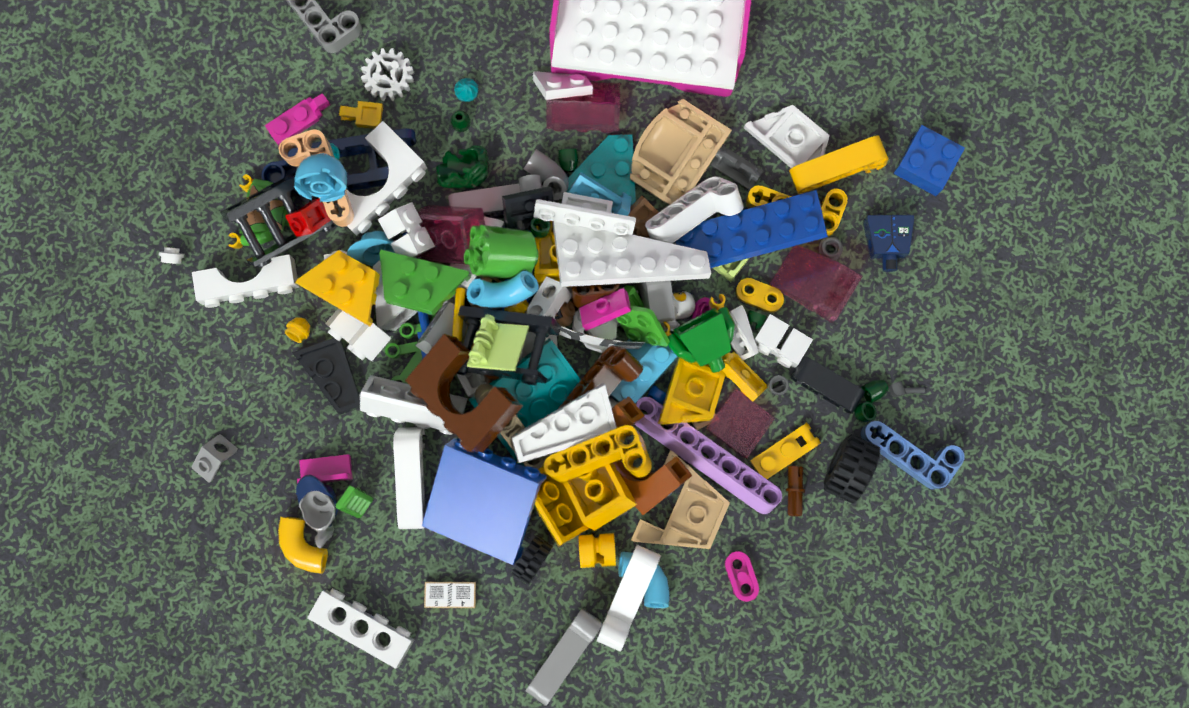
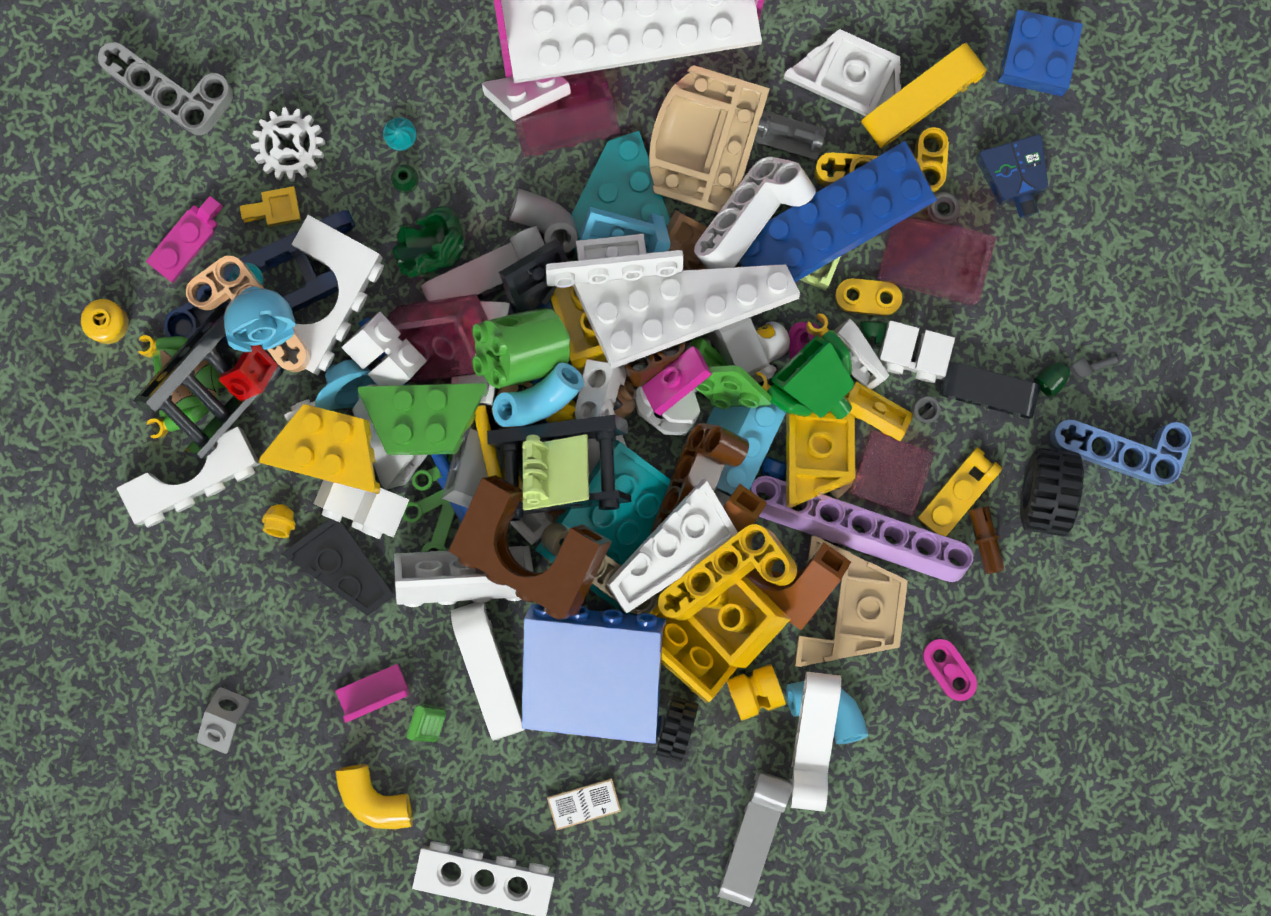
camera: 20 degrees left, 5 degrees up
(171, 255) = (79, 472): white plate -> none
(222, 157) = (114, 326): none -> yellow head
(317, 507) = (380, 743): light grey hair -> none
(544, 228) = (564, 296): dark green hinge -> none
(568, 159) = (564, 189): dark green hose -> none
(598, 341) = (676, 424): sticker -> none
(865, 412) = (1049, 411): dark green hinge -> none

